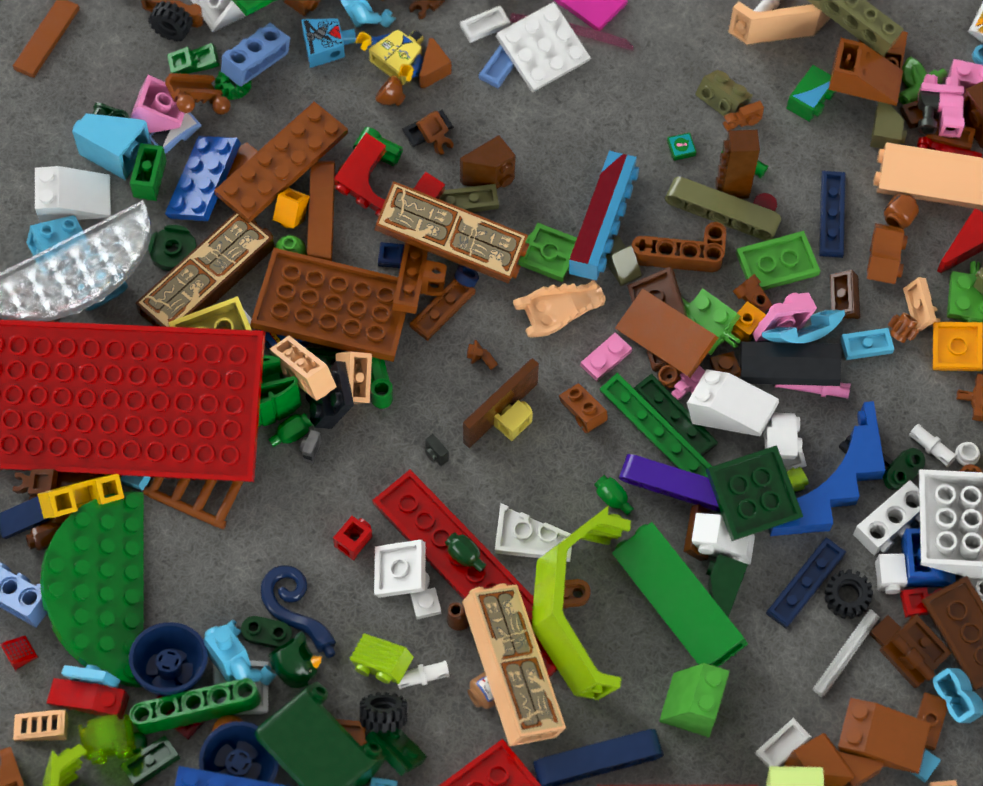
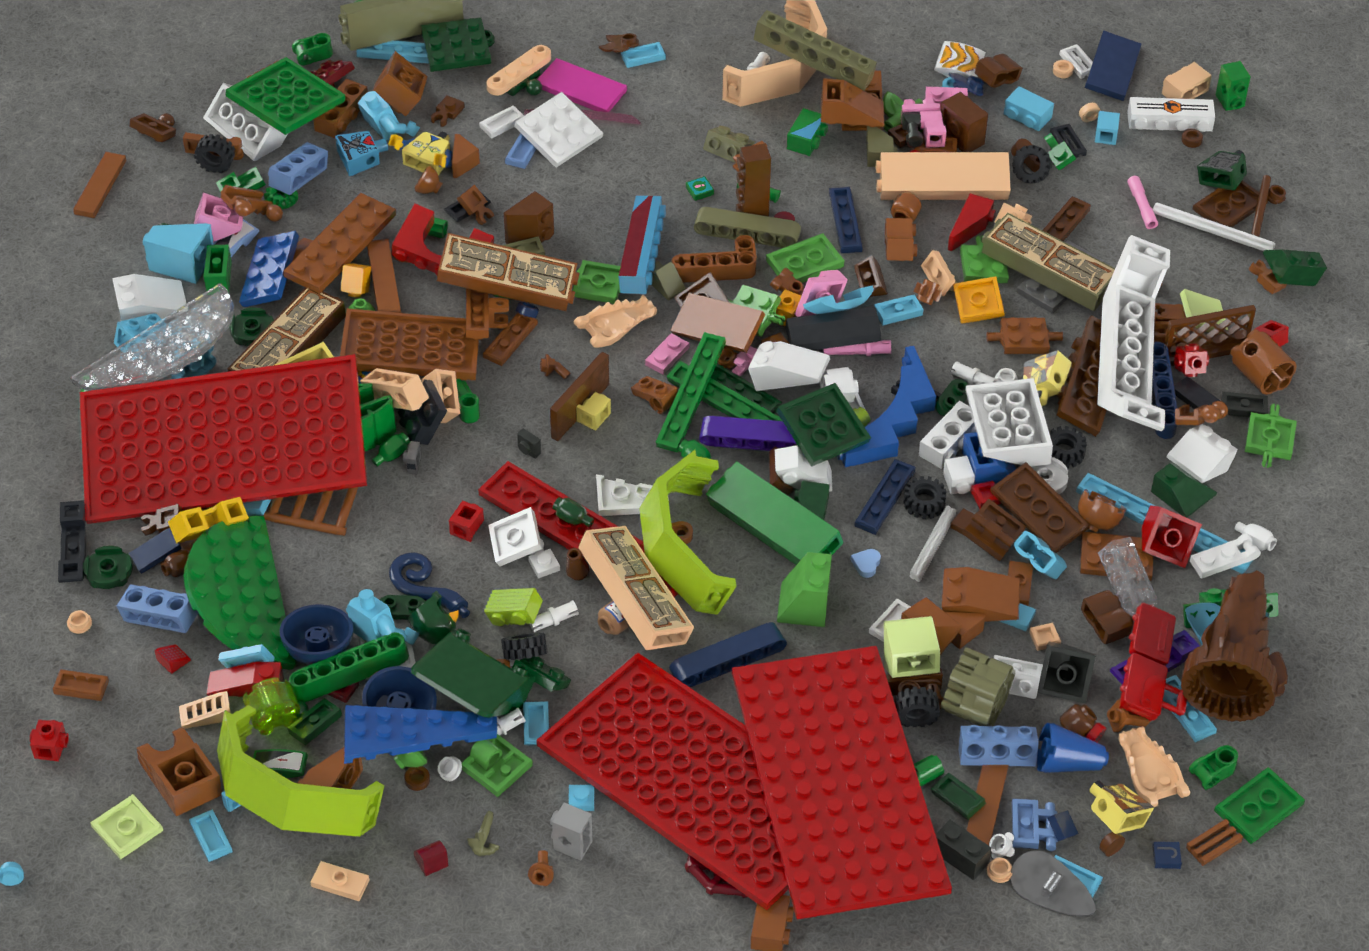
camera: 10 degrees left, 15 degrees down
(390, 255) = (454, 305): dark blue tile -> none
(620, 417) = (690, 392): none -> green plate
(769, 664) = (866, 562): none -> light blue tile

